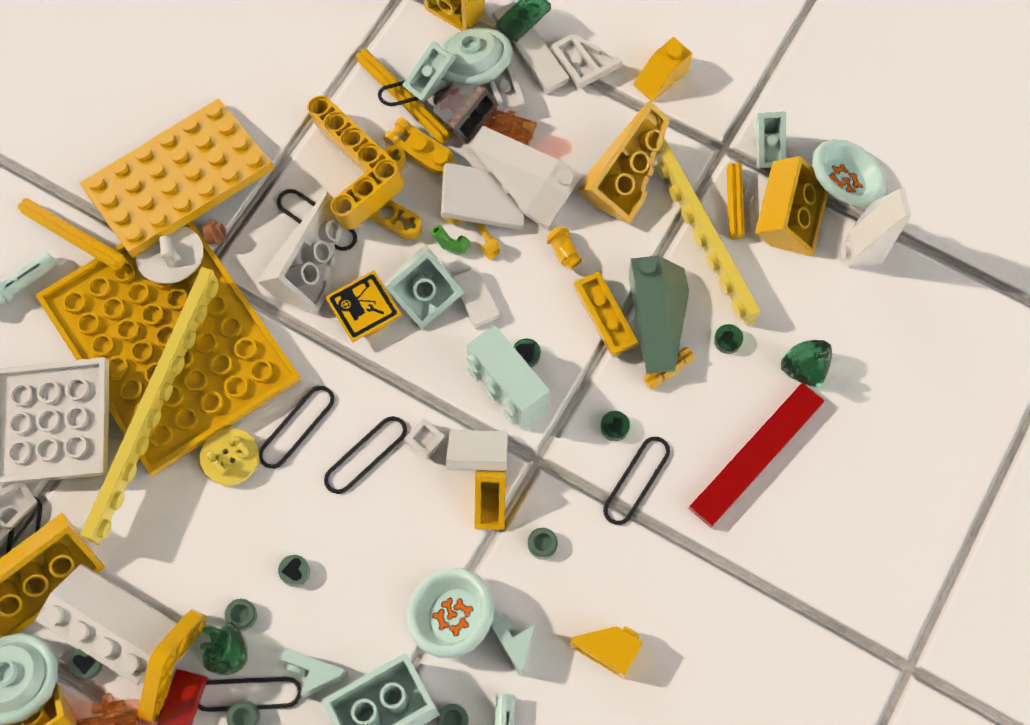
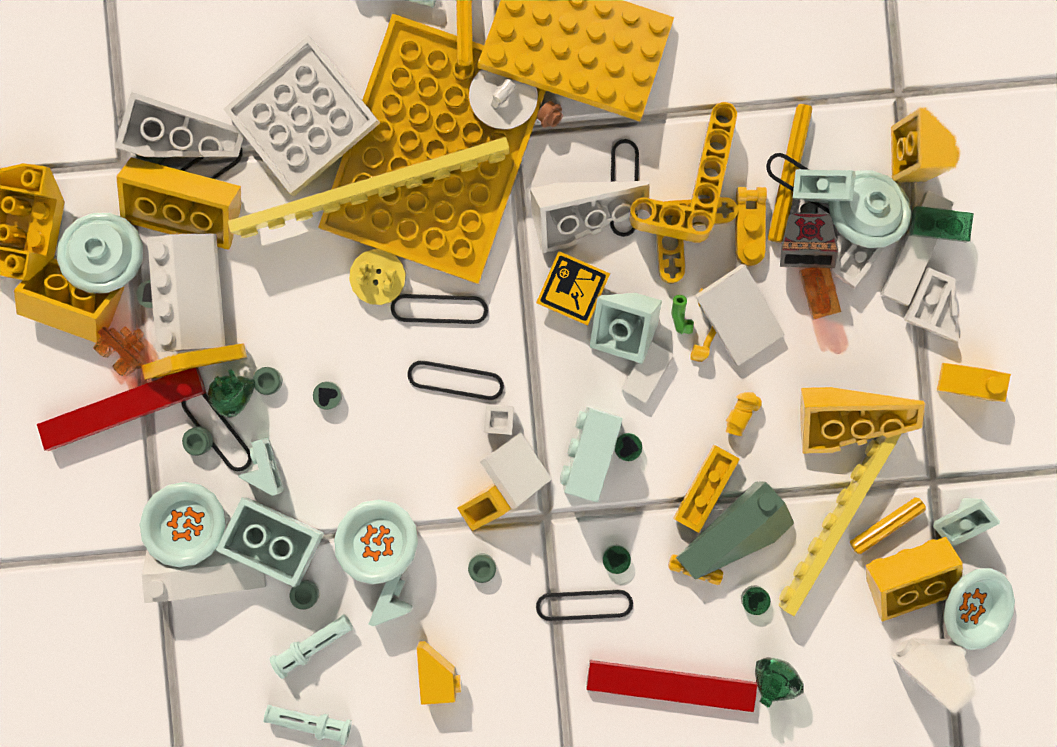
camera: 55 degrees right, 20 degrees up
(530, 176) = (784, 344): white wedge -> none

